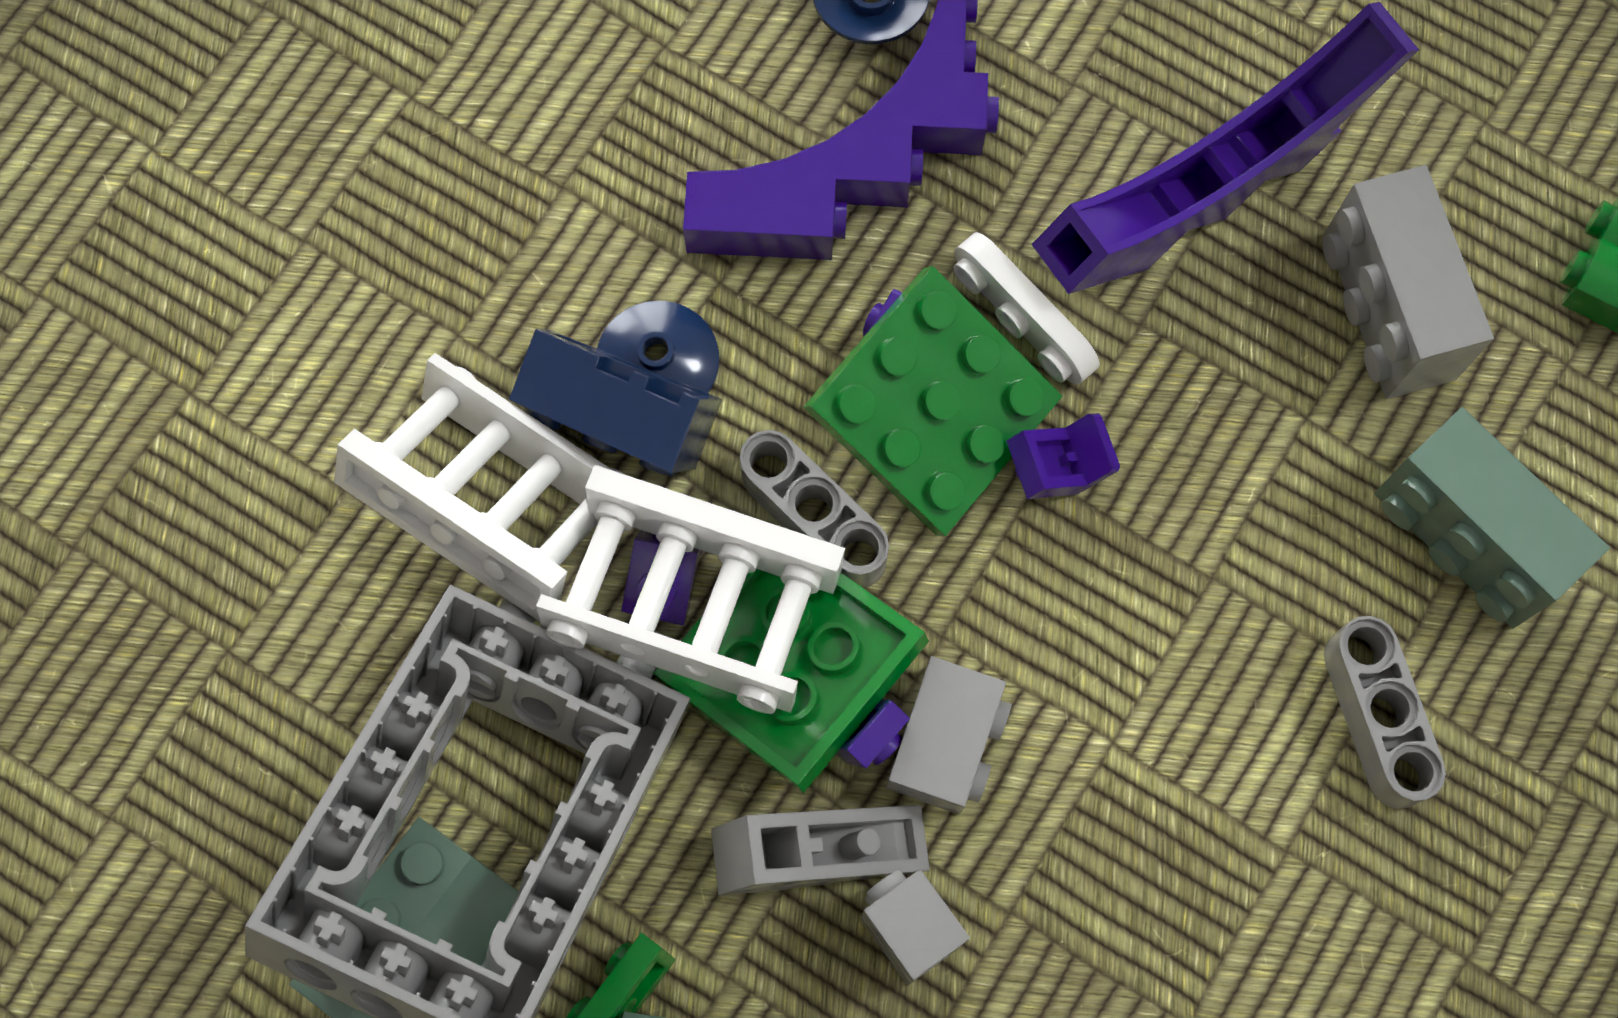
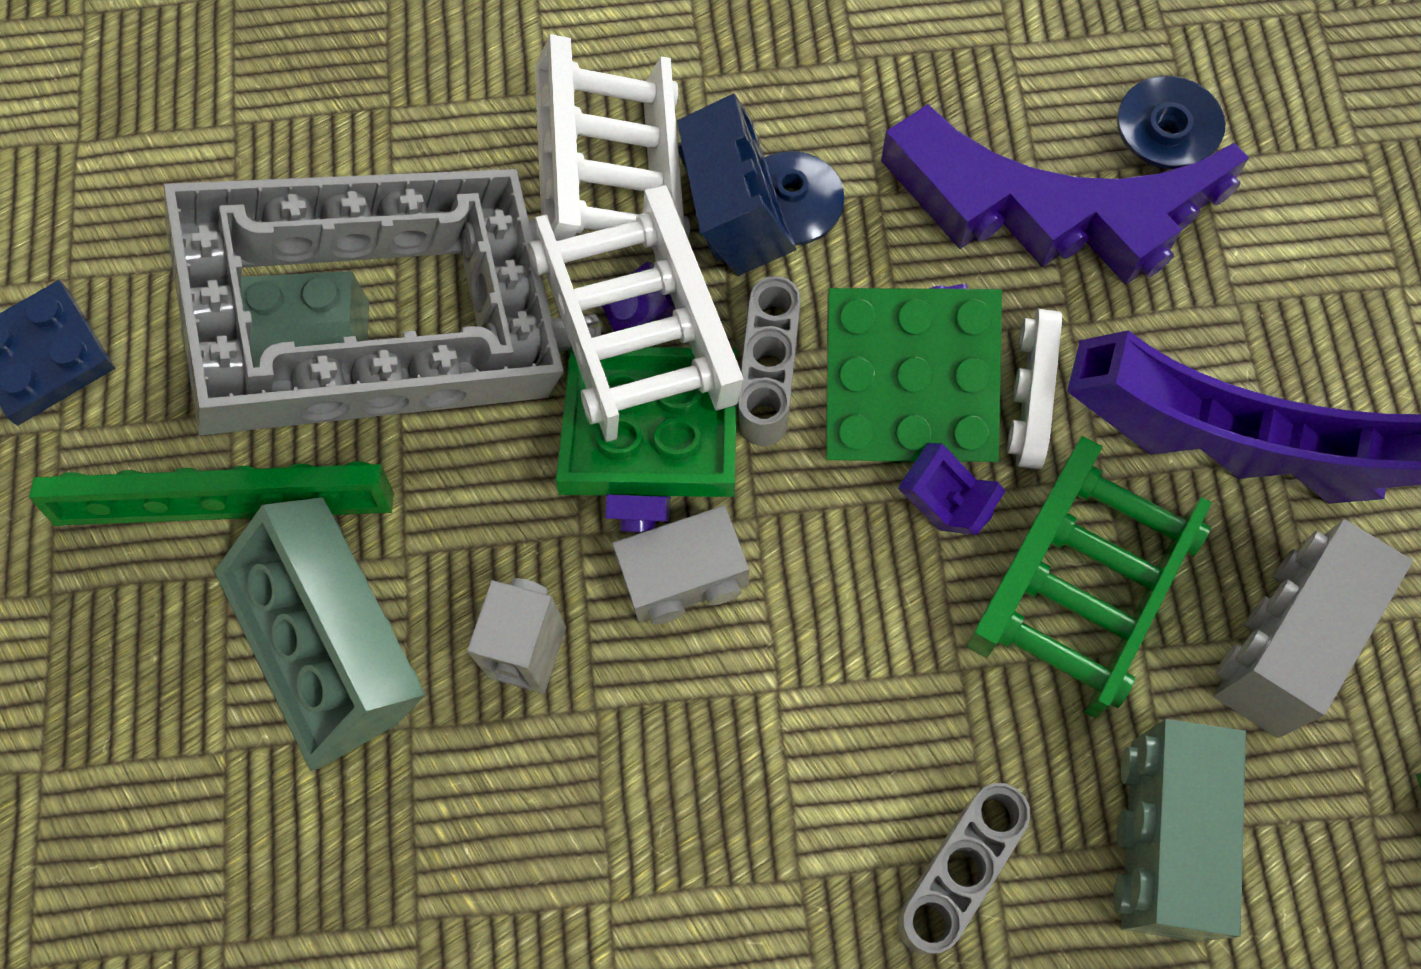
camera: 55 degrees right, 5 degrees down
(817, 848) = (536, 542): light grey slope -> none
(1182, 456) = (1032, 576): none -> green fence

